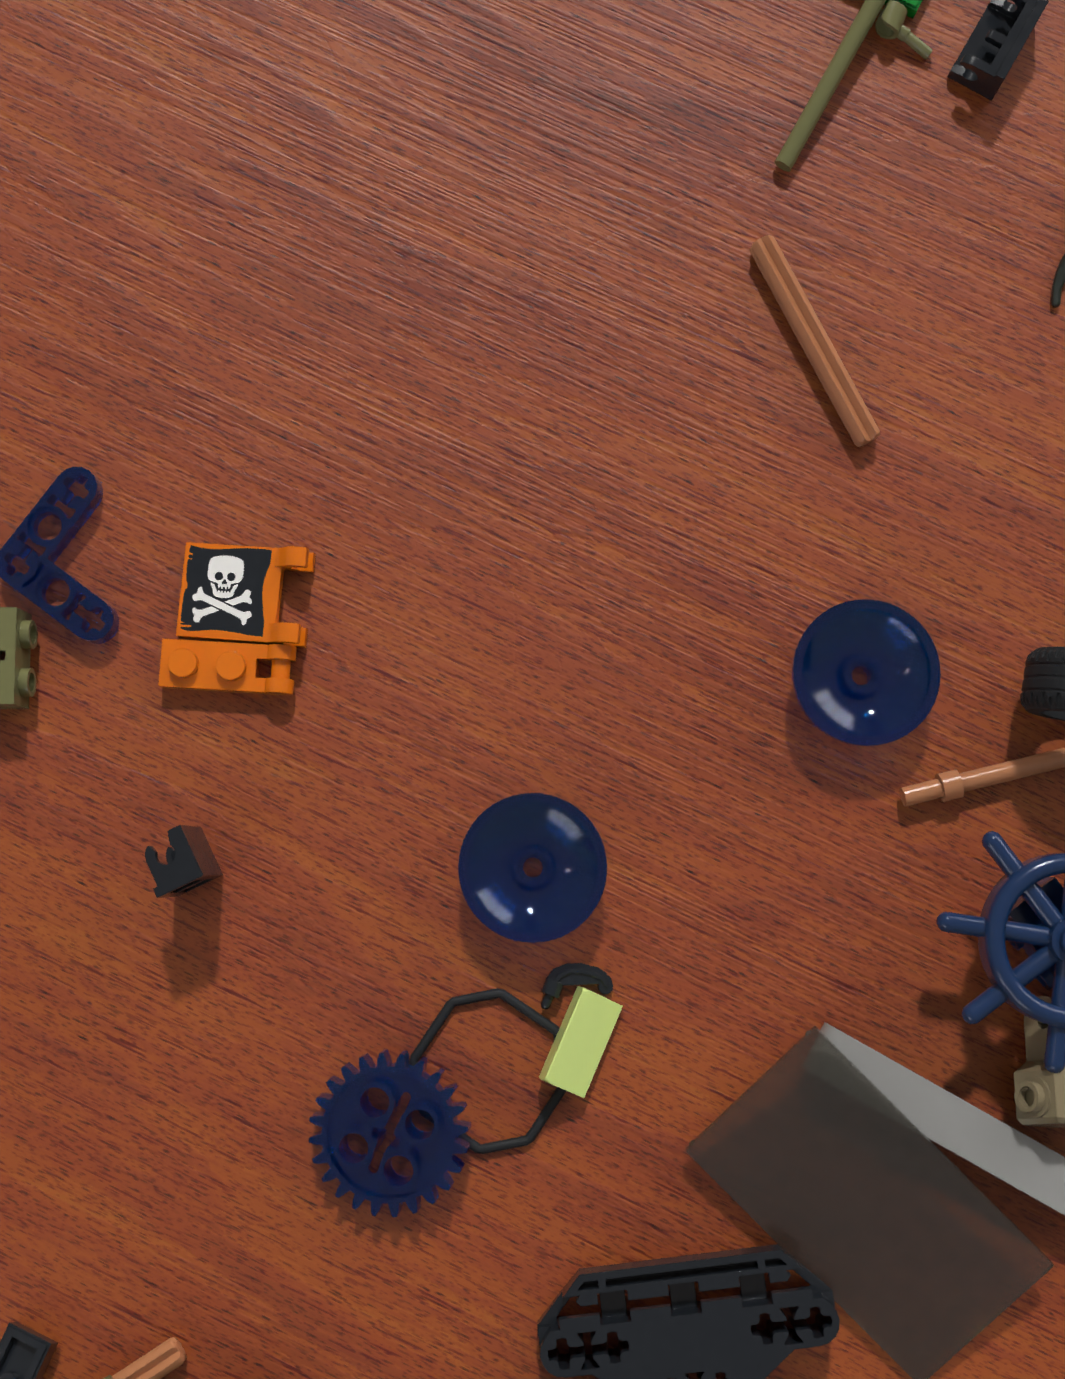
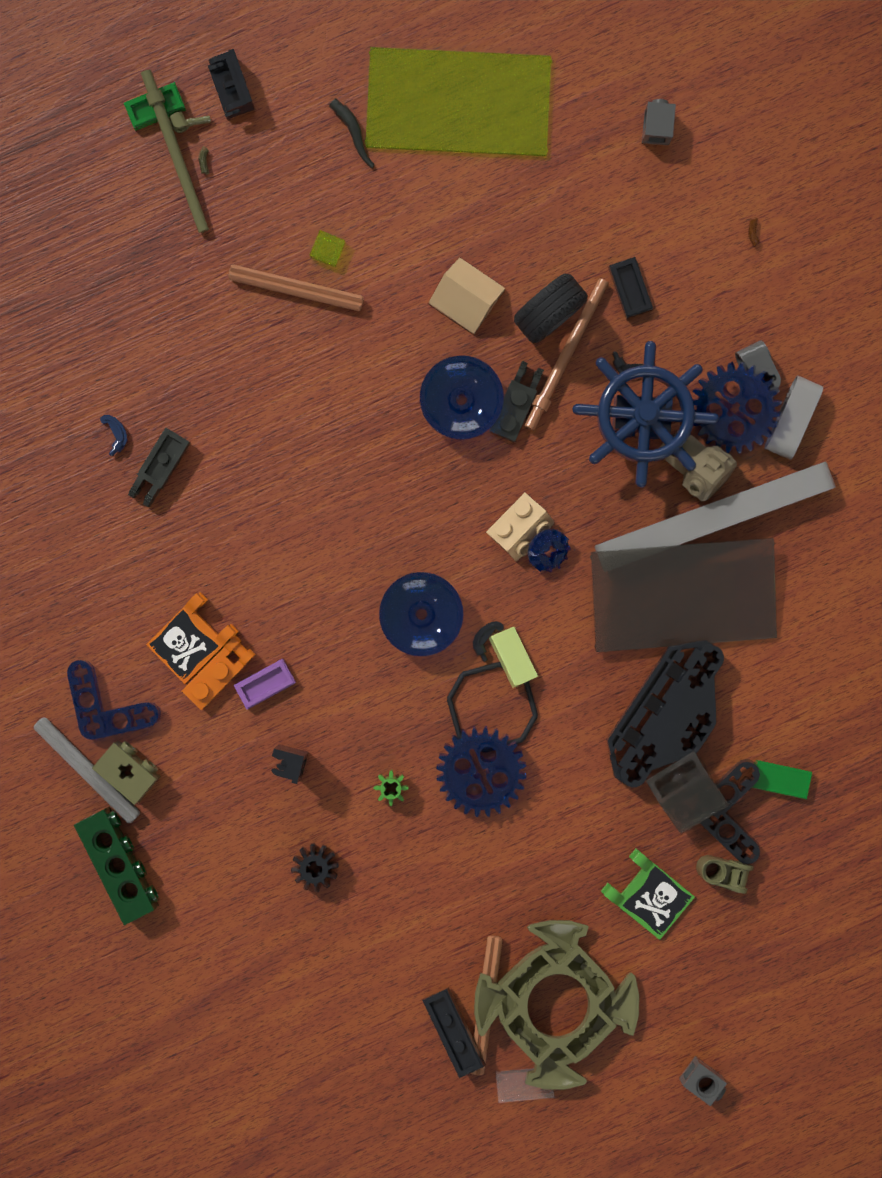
camera: 55 degrees left, 5 degrees up
(54, 1015) = (321, 860): none -> black gear
(254, 1037) = (391, 795): none -> bright green gear
(264, 740) = (265, 684): none -> medium lavender tile
(432, 277) = (118, 431): none -> dark blue piece
(434, 362) = (160, 465): none -> pearl dark grey hinge
(763, 900) = (519, 526): none -> tan bracket
(765, 948) = (541, 544): none -> clear blue gear
(882, 82) = (202, 160): none -> olive leg
(900, 337) = (327, 248): none -> clear neon green tile
(917, 754) = (516, 404): none -> pearl dark grey hinge
(999, 565) = (466, 295): none -> tan slope

